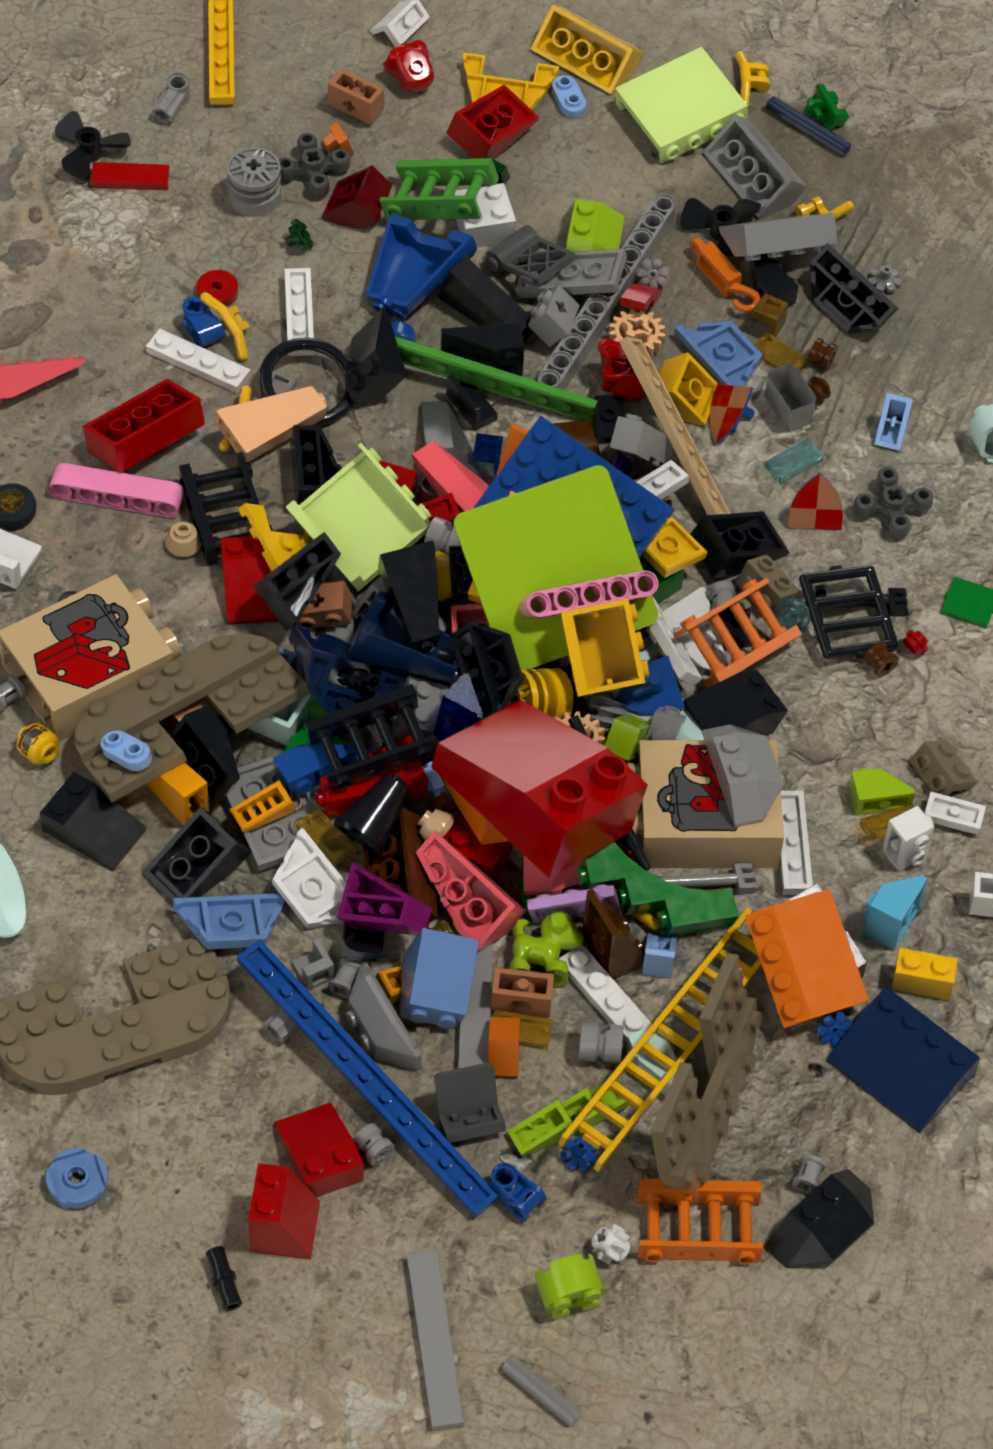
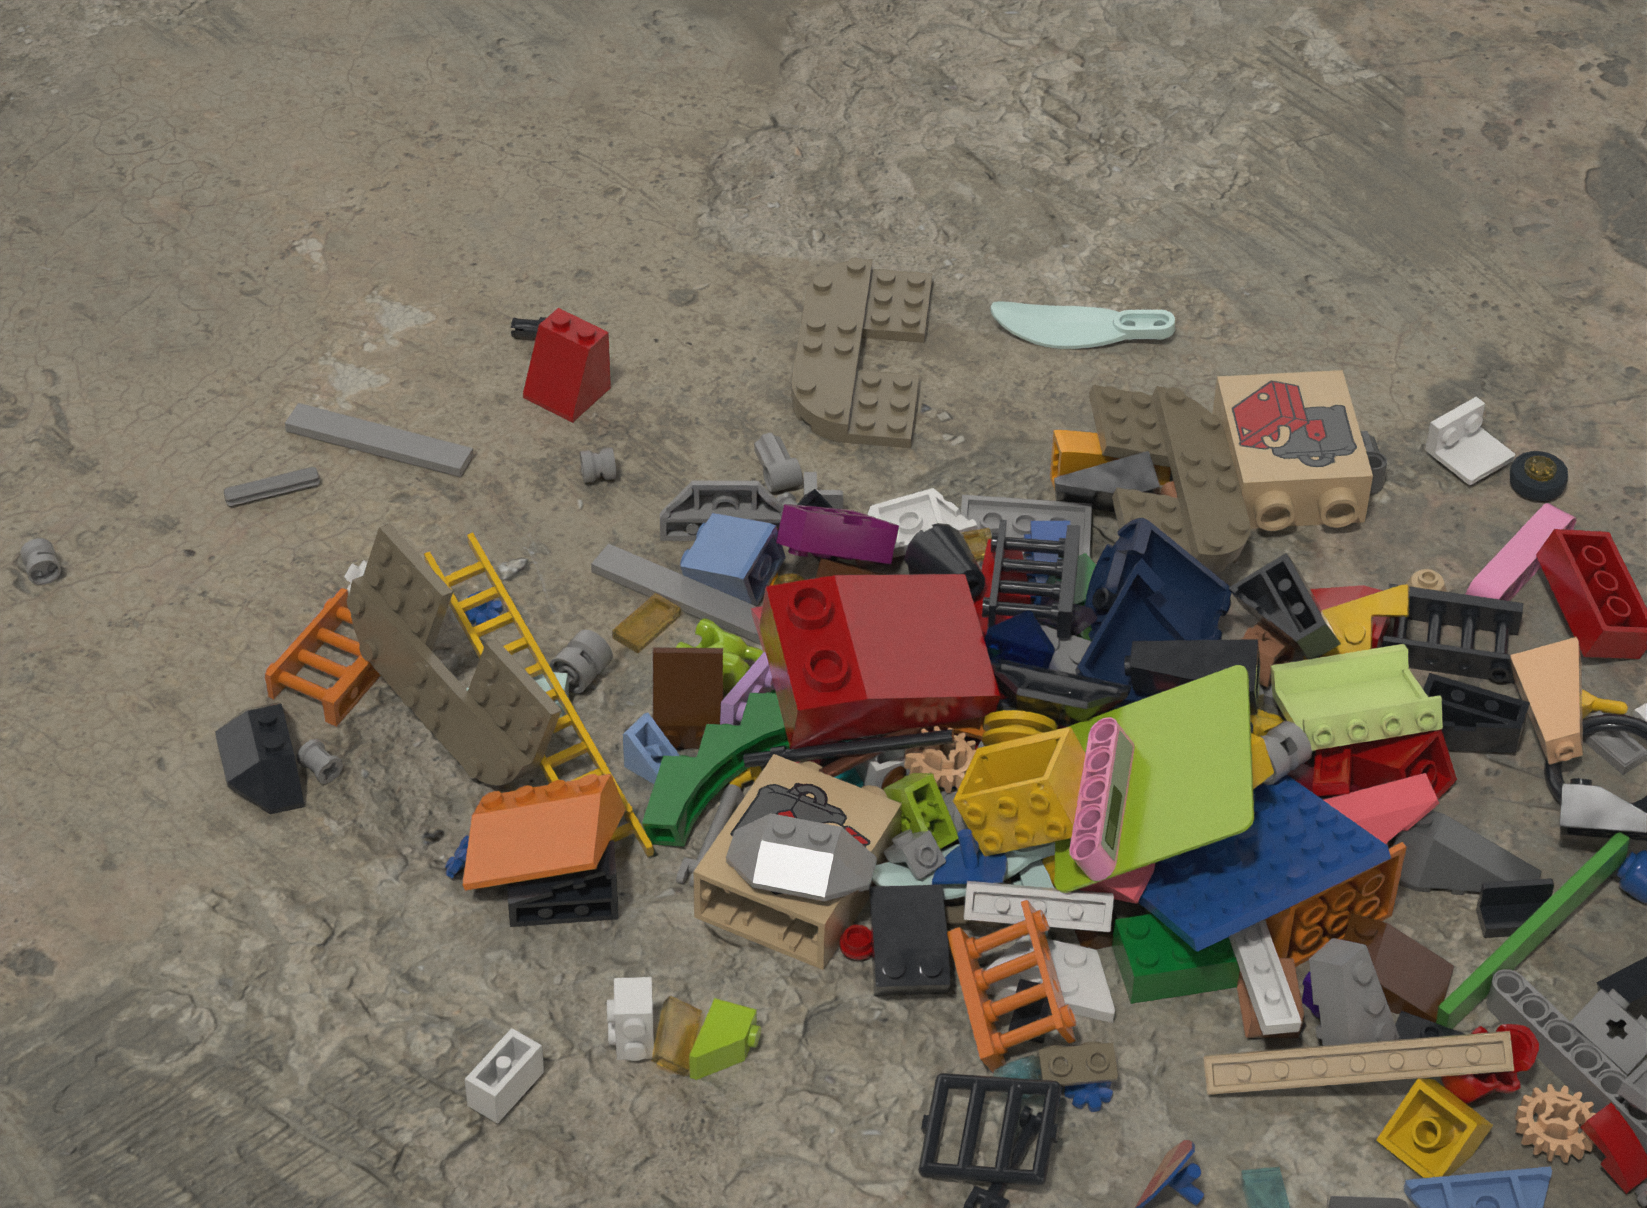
camera: 120 degrees right, 10 degrees down
(37, 744) = (1202, 388): yellow head -> none
(80, 1194) = (700, 286): medium blue plate -> none
(90, 822) = (1069, 403): black slope -> none
(121, 749) = (1134, 406): light blue plate -> none
(196, 857) = (1002, 461): black slope -> none
(230, 920) = (910, 453): medium blue wing -> none
(267, 816) = (1022, 508): light orange slope -> none
(321, 1150) = (628, 426): red slope -> none
(368, 1079) = (664, 473): blue plate -> none
(468, 1103) = (576, 537): dark grey bracket -> none
(488, 449) = (1419, 886): clear blue panel -> none
(490, 345) = (1574, 942): black slope -> none
(504, 1046) = (635, 590): orange slope -> none
(520, 1194) = (487, 530): blue piece -> none
(522, 992) = (677, 617): nougat brick -> none
(552, 1121) = (526, 592): lime slope -> none
(570, 1285) = (344, 526): lime brick -> none
(604, 992) = (613, 703): white plate -> none
(673, 549) = (1167, 967): yellow tile -> none
(720, 593) = (1088, 1019): light grey wheel -> none
(727, 408) = (1374, 1169): shield -> none
(735, 539) = (1160, 1075): black slope -> none
(795, 852) = (711, 932): white plate -> none
(880, 659) = (905, 1134): reddish brown wheel -> none
(893, 910) = (550, 957): medium azure slope -> none
(904, 1059) = (383, 904): dark blue slope -> none
(915, 642) = (909, 1185): red plate -> none
(924, 974) = (464, 961): yellow brick -> none
(942, 768) = (715, 1124): dark tan bracket -> none
(955, 813) = (648, 1102): white plate -> none

